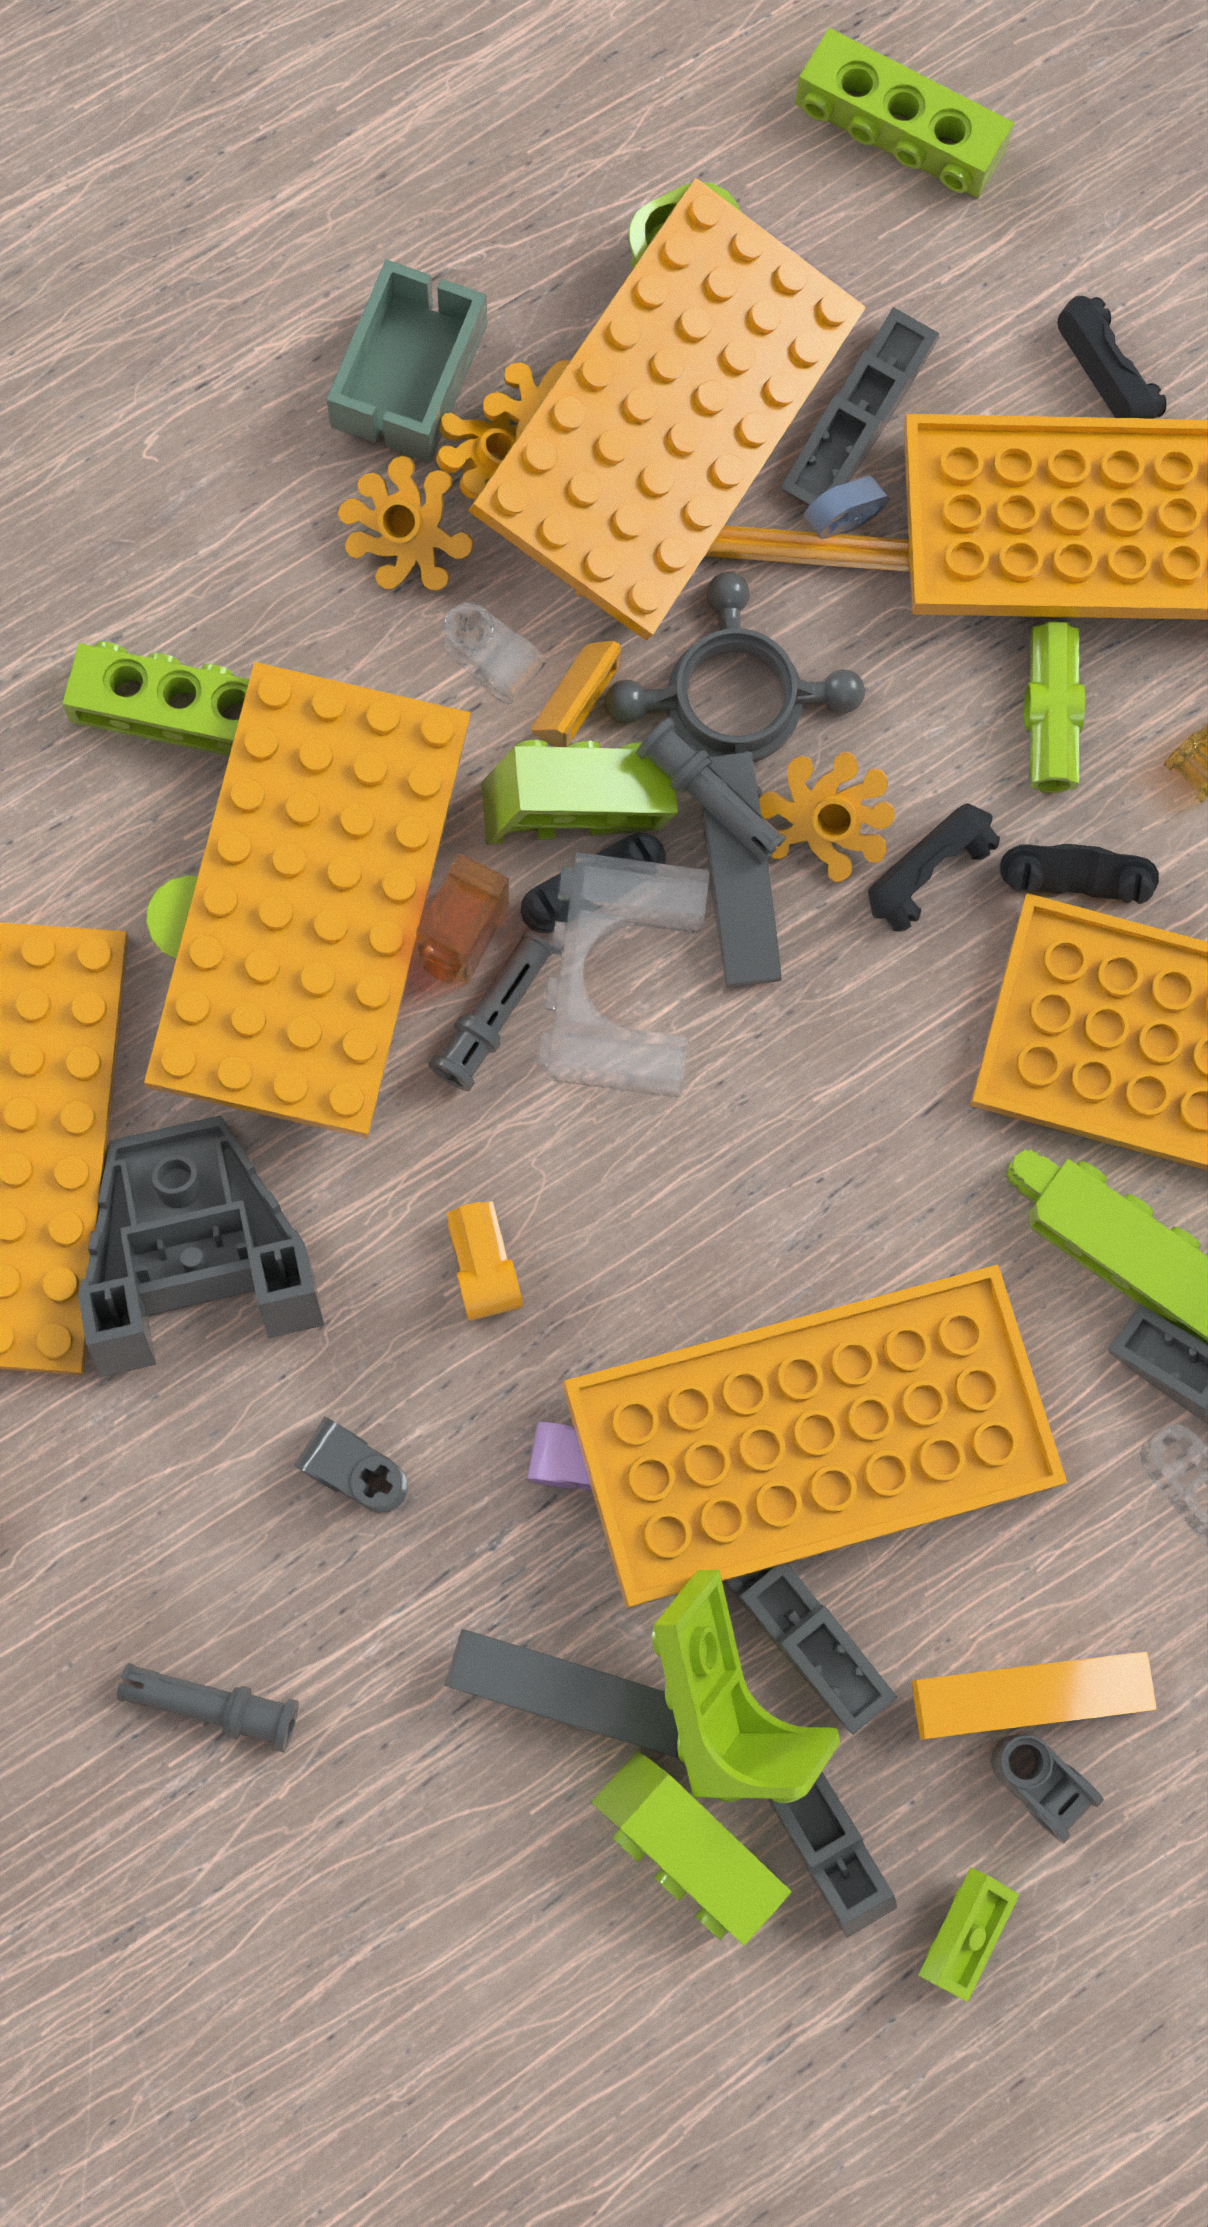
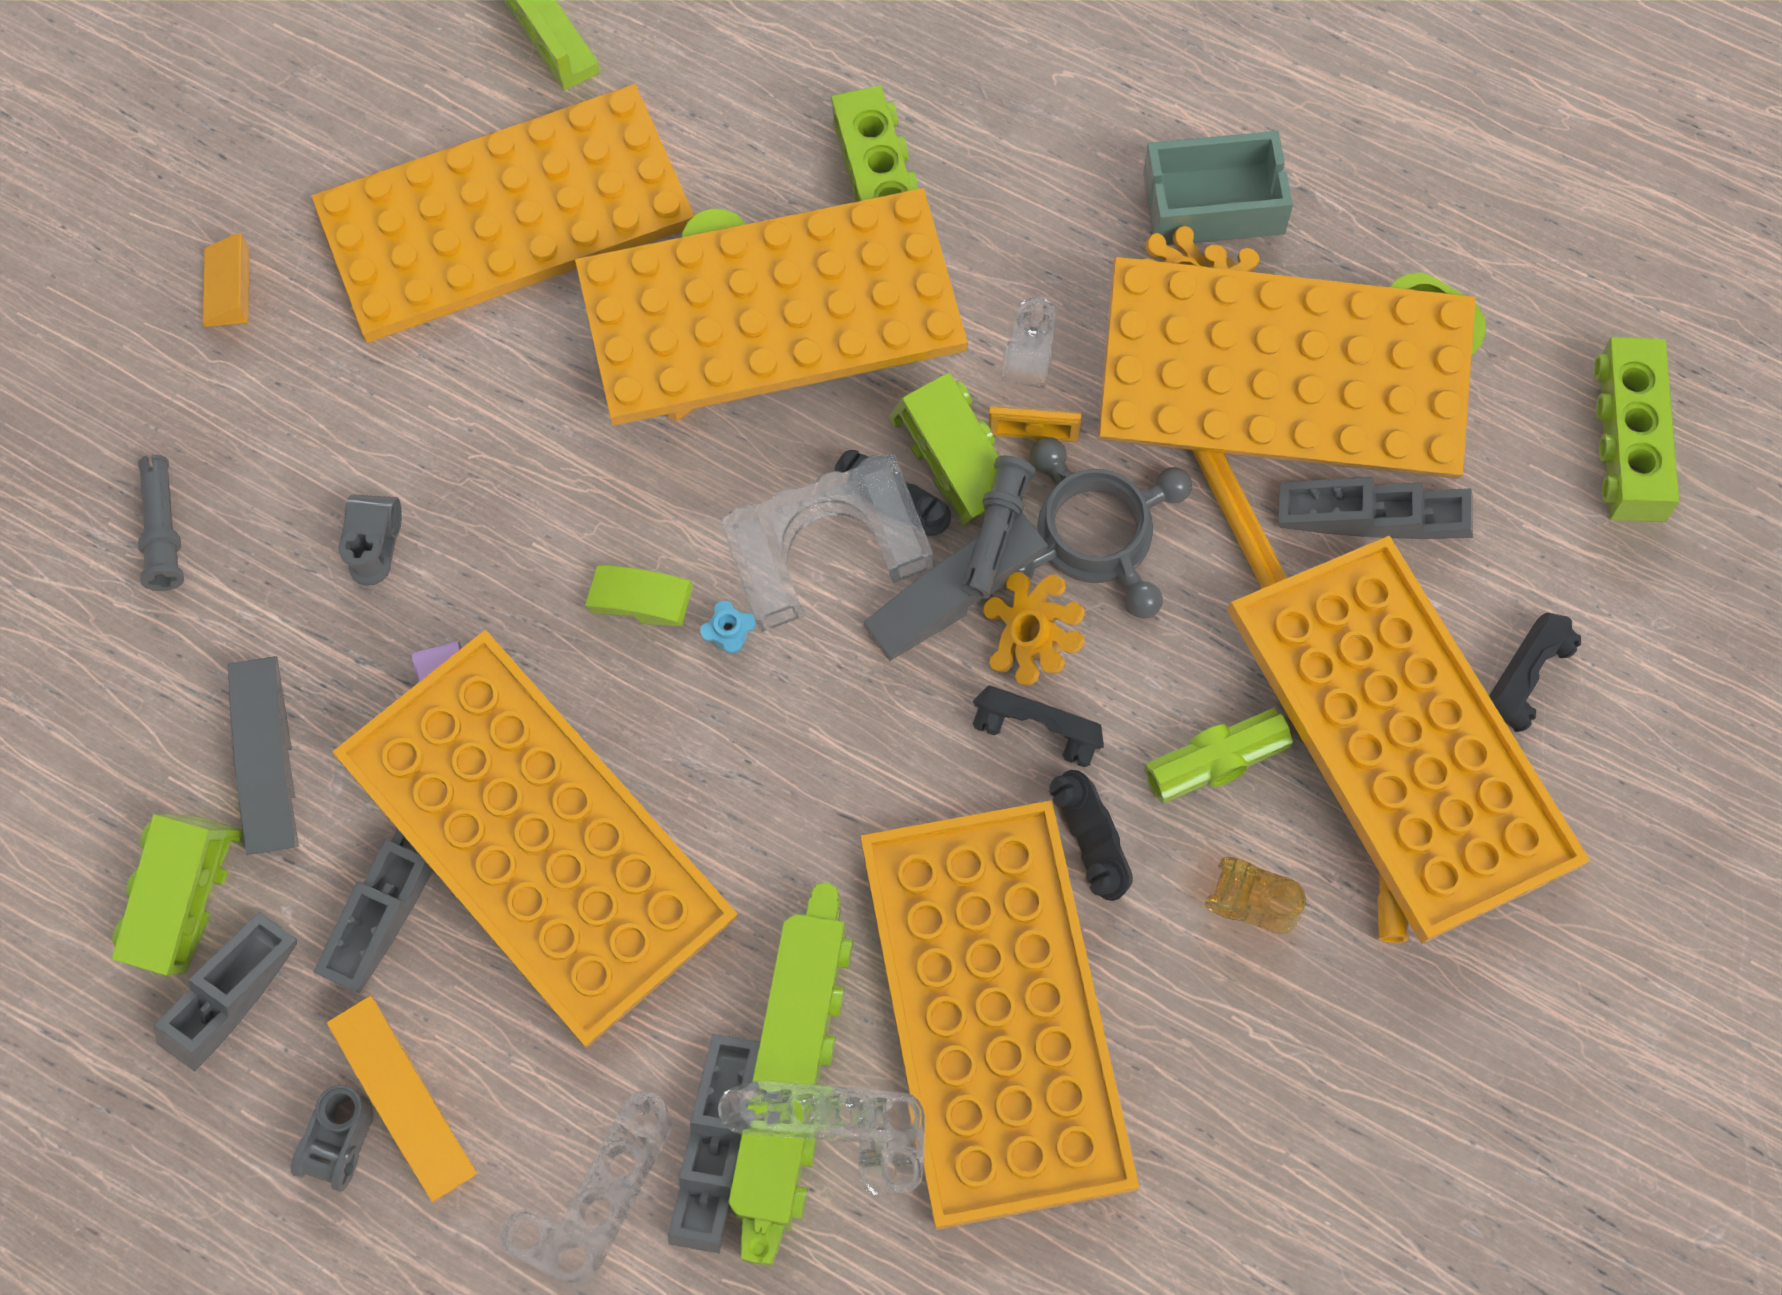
camera: 70 degrees right, 10 degrees down
(186, 1228) = (491, 348): dark grey wedge -> none
(405, 525) = (1092, 245): light orange animal -> none
(462, 920) = (807, 411): clear orange hips -> none
(478, 1032) = (736, 463): dark grey pin -> none
(485, 1274) = (554, 558): light orange piece -> none
(576, 1205) = (640, 593): none -> lime slope
(658, 1143) = (728, 640): none -> medium azure plate
(724, 1734) = (281, 847): lime bracket -> none
(846, 507) = (1287, 528): sand blue beam -> none
(968, 1934) = (190, 1132): lime plate -> none

